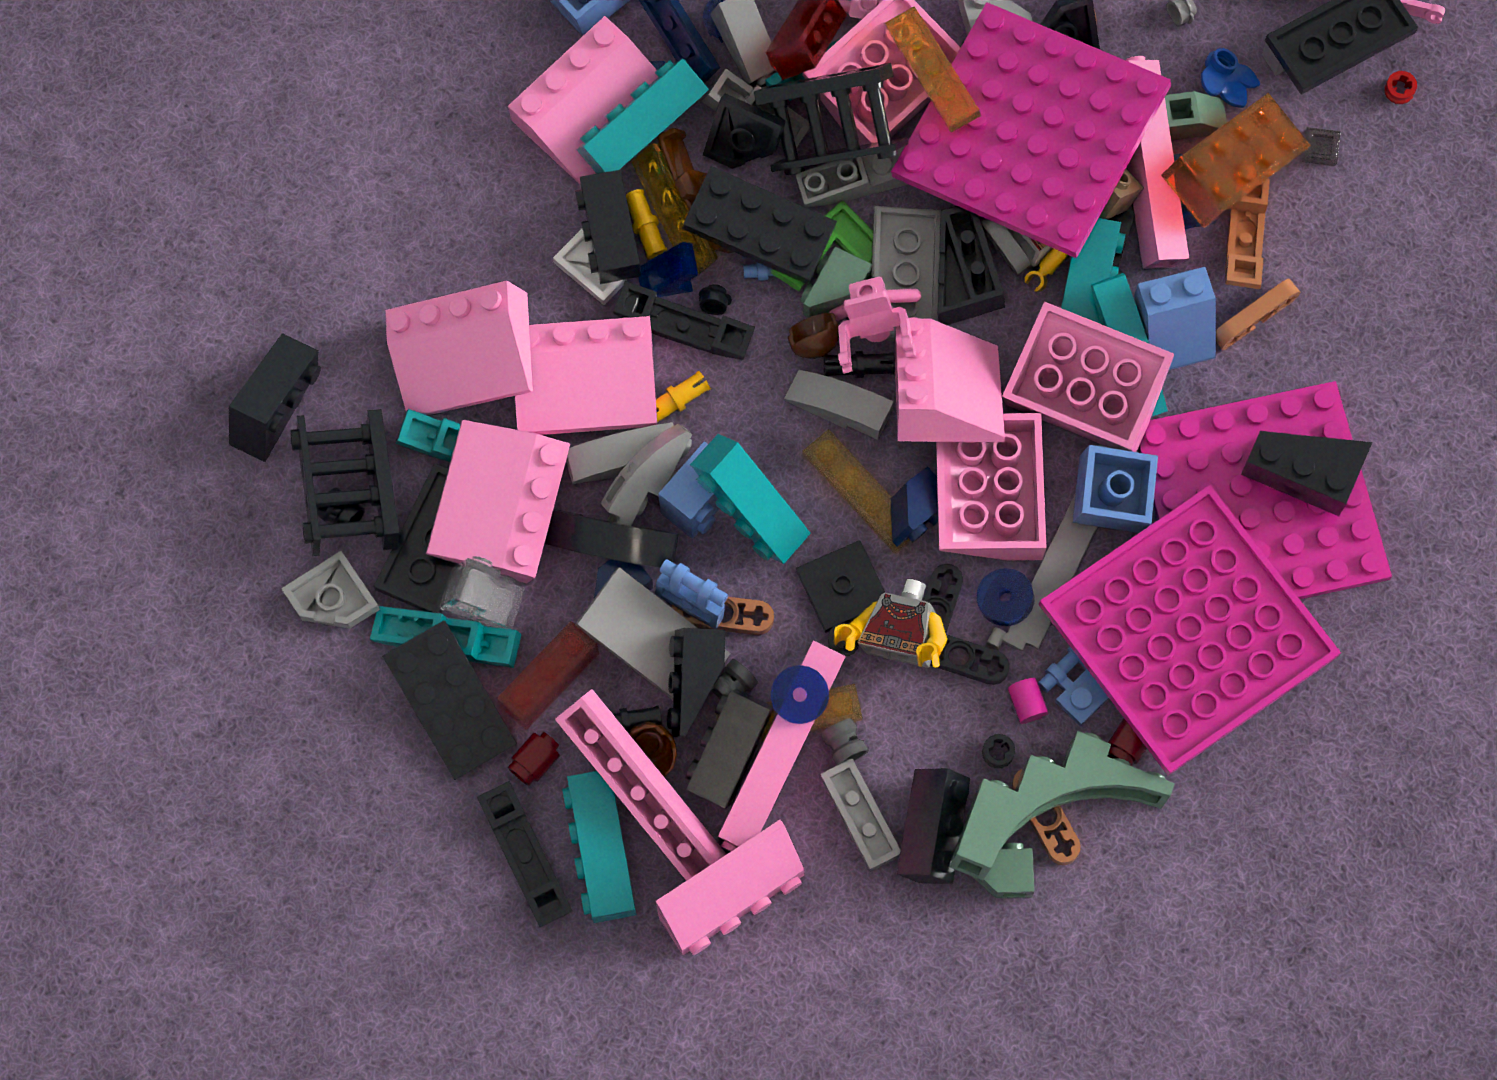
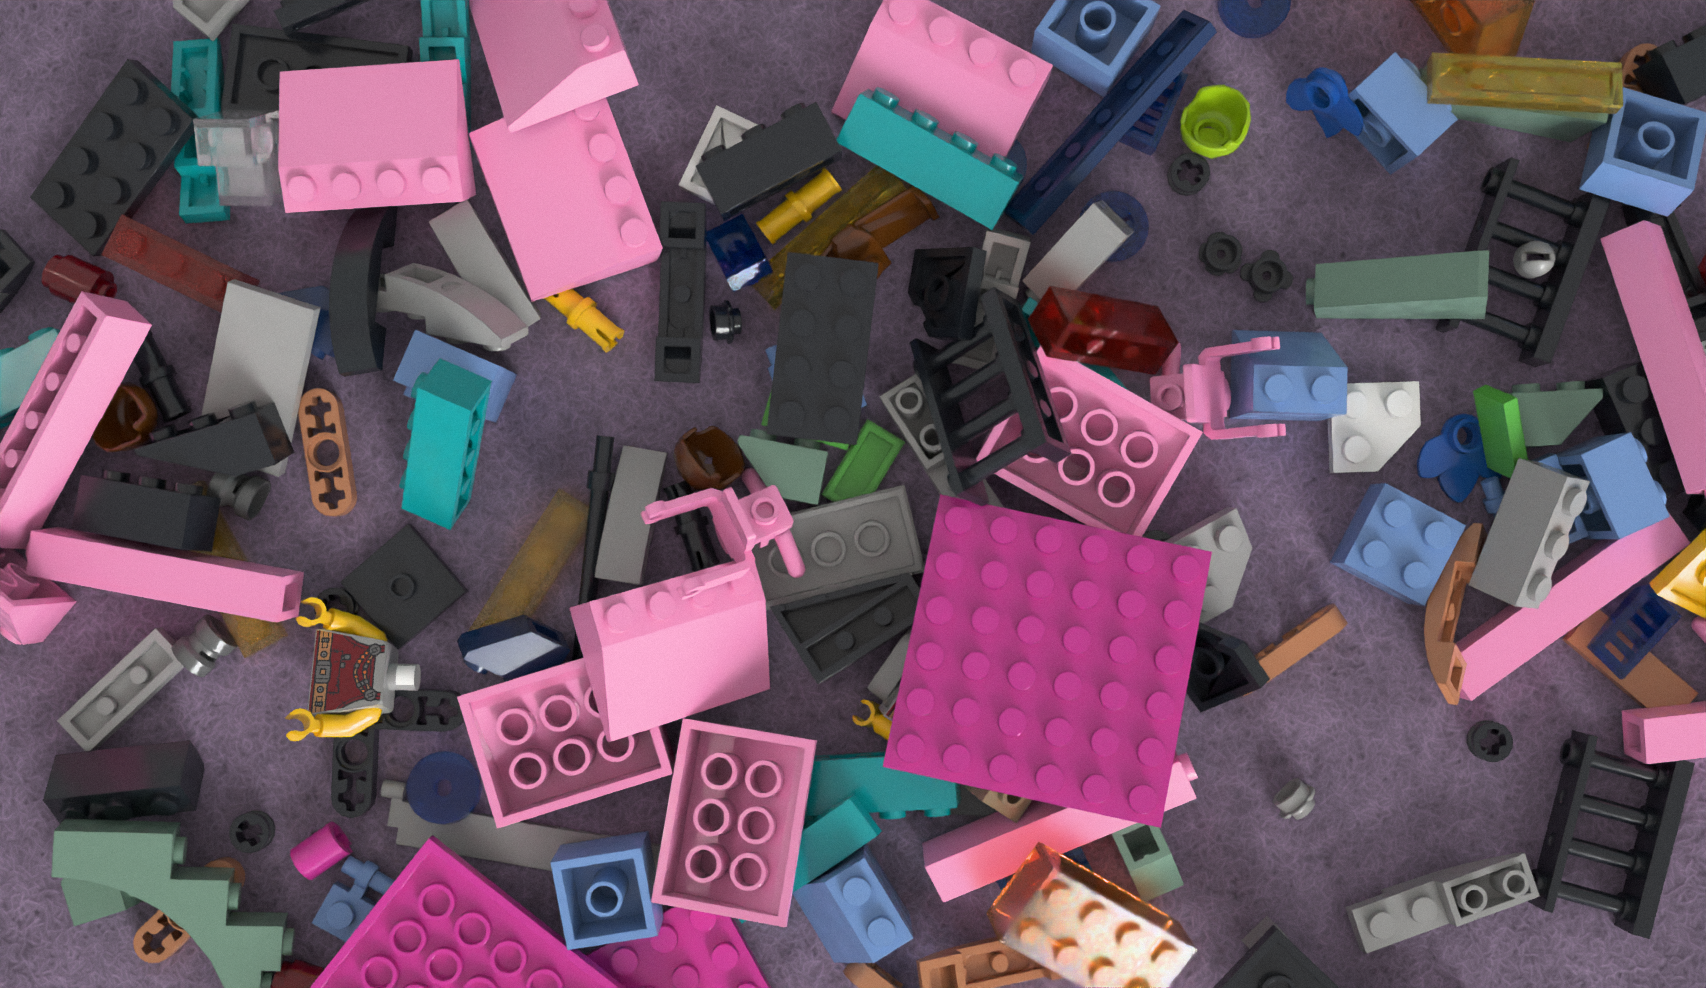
camera: 75 degrees right, 15 degrees up
(691, 593) = (311, 428): medium blue plate -> none
(807, 415) = (600, 482): none -> black bar
(816, 694) = (190, 582): clear blue piece -> none
(932, 69) = (1088, 509): clear yellow plate -> none
(1227, 77) = (1215, 883): blue plate -> none

